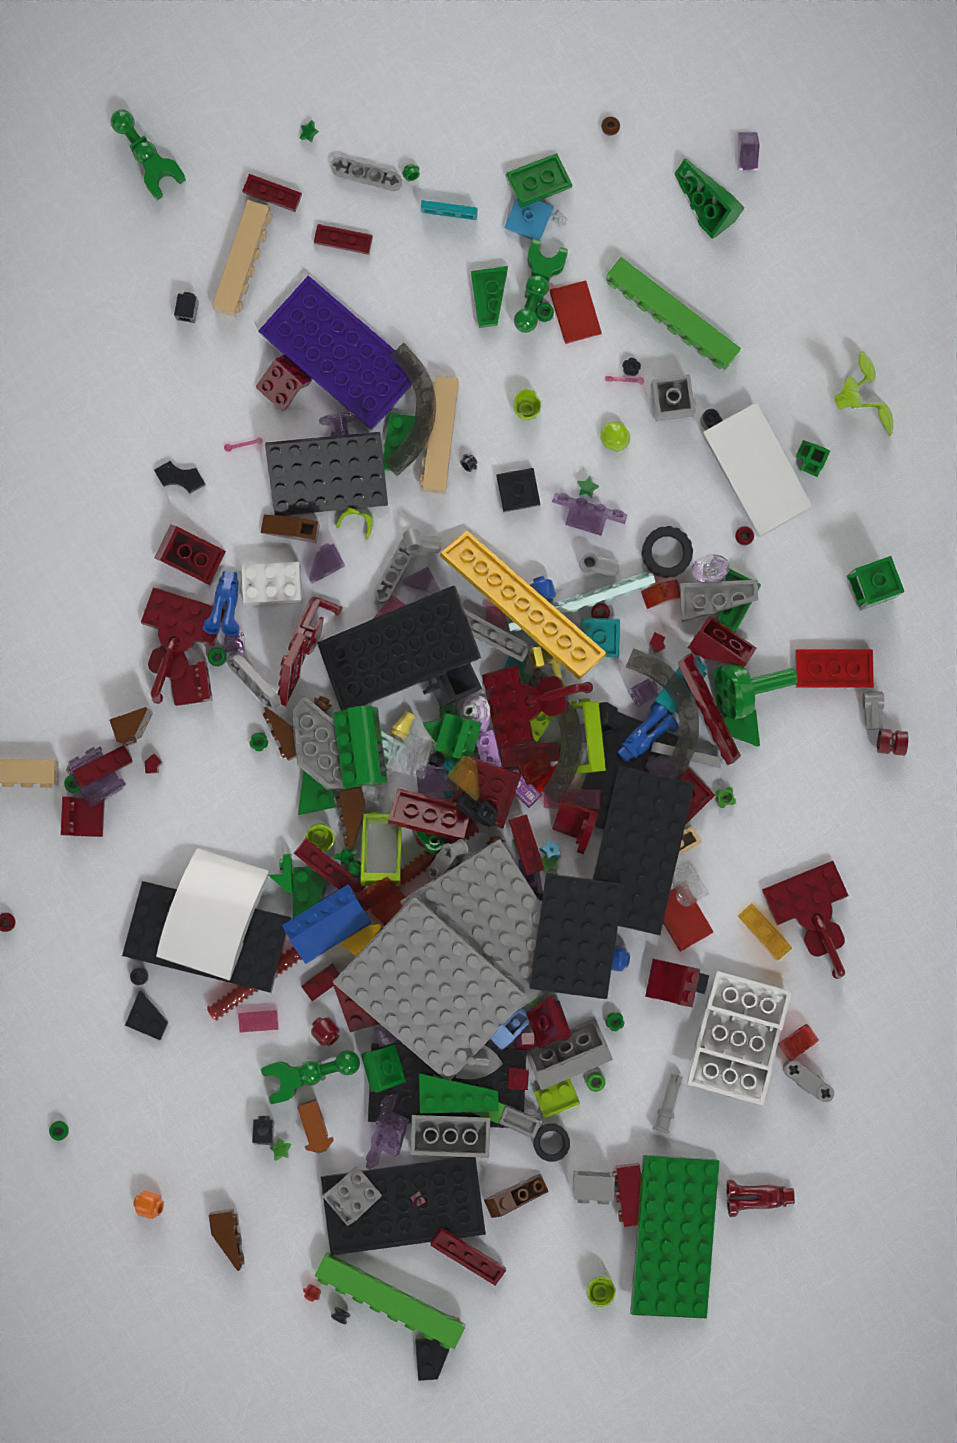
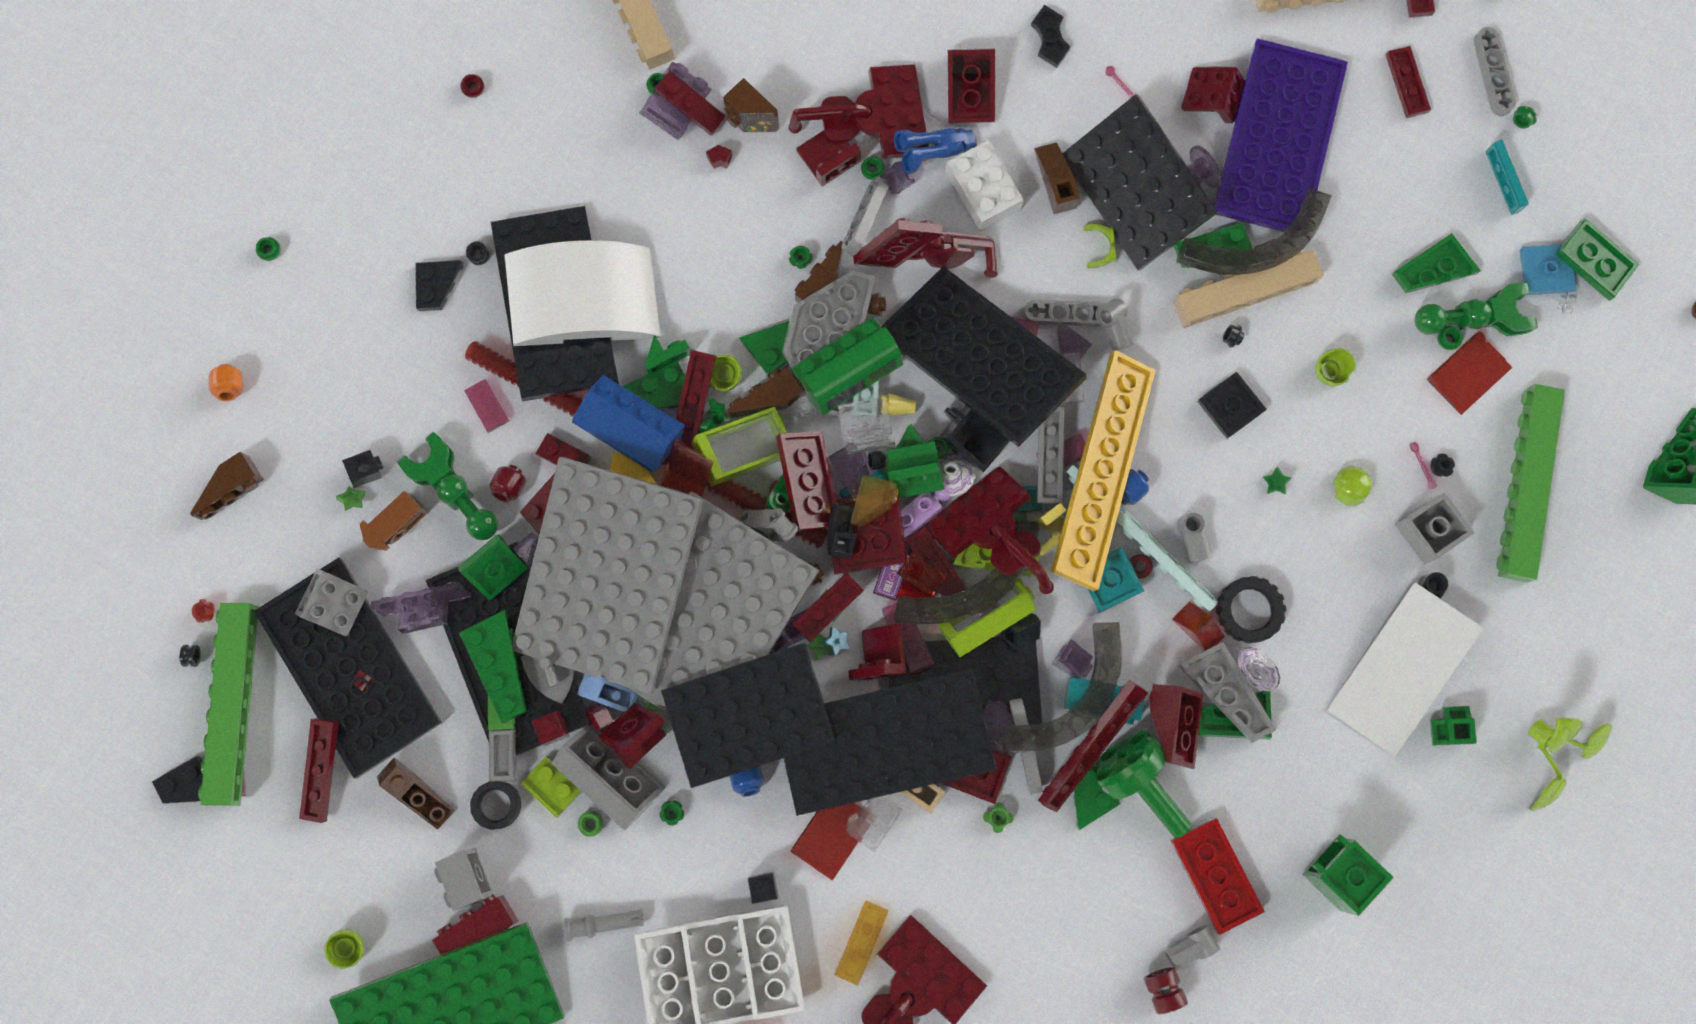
camera: 65 degrees right, 5 degrees down
(80, 819) = (621, 106): dark red bracket -> none
(325, 562) = (1036, 232): clear purple slope -> none
(450, 1136) = (448, 682): light grey slope -> none
(587, 515) = (1244, 498): clear purple bracket -> none
(639, 741) = (1014, 682): blue piece -> none
(657, 643) = (1138, 649): dark red piece -> none
(672, 982) = (748, 859): dark red panel -> none
(748, 531) = (1324, 688): dark red plate -> none

